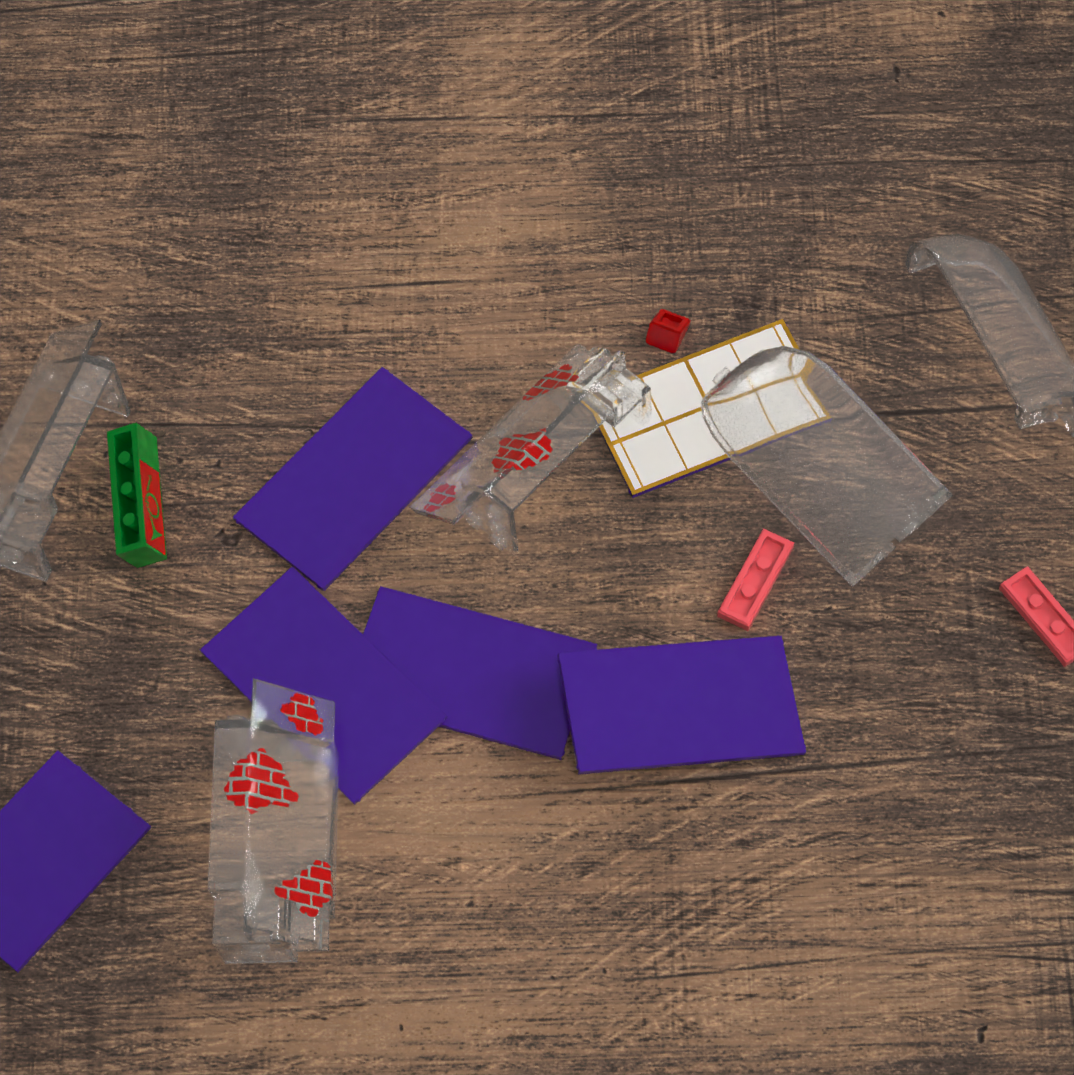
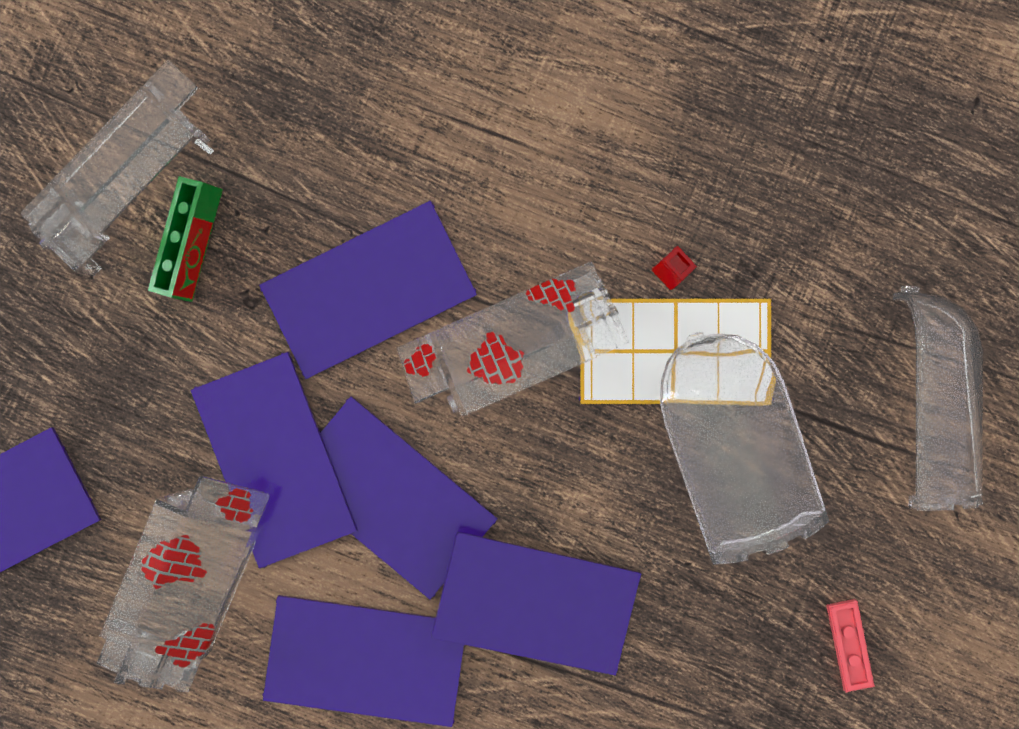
camera: 20 degrees right, 25 degrees up
(516, 855) = (361, 662): none -> dark purple piece
(755, 579) = (643, 517): coral tile -> none

